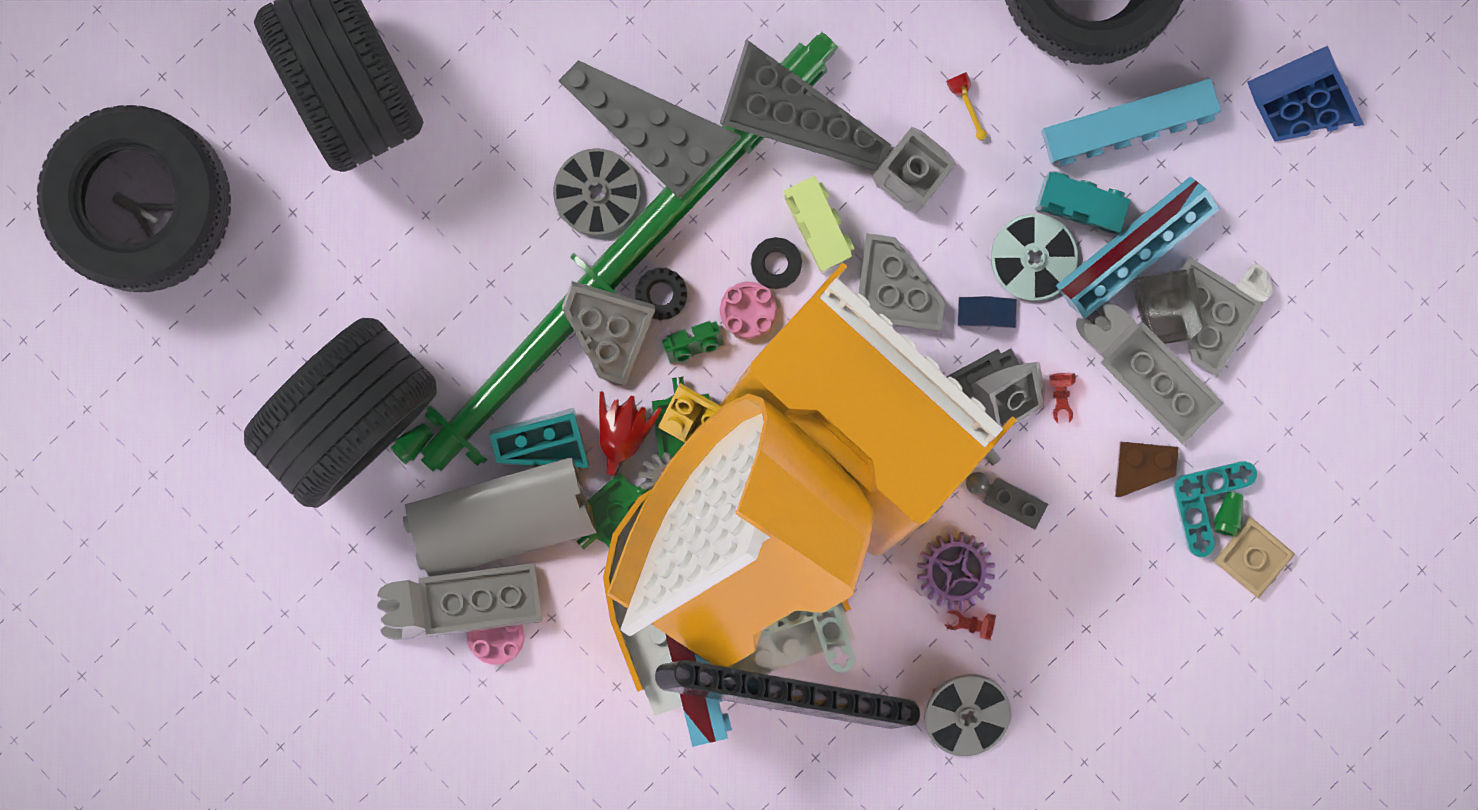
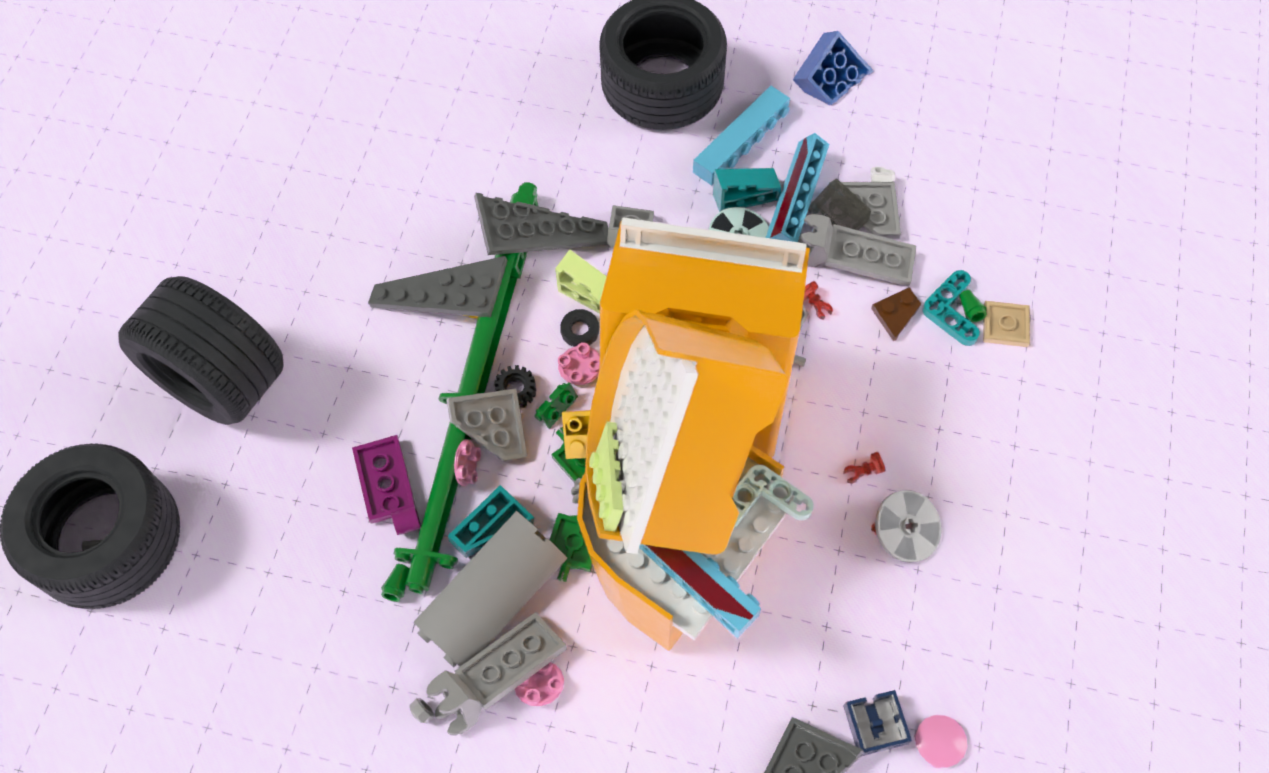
camera: 30 degrees left, 25 degrees down
(339, 412) = (319, 571): black tyre -> none
(366, 593) = (421, 710): none -> light grey tile
(464, 348) = (398, 499): none -> magenta hinge
(554, 357) = (466, 463): none -> bright pink dish
(574, 198) = (444, 364): light grey piece -> none
(622, 430) = (543, 483): red piece -> none
(655, 533) = (606, 478): none -> yellowish green wing
(786, 694) = (774, 562): black beam -> none
(960, 86) = (626, 171): hinge -> none
(978, 582) = (845, 435): medium lavender gear -> none
(1007, 499) = (829, 379): dark grey plate -> none

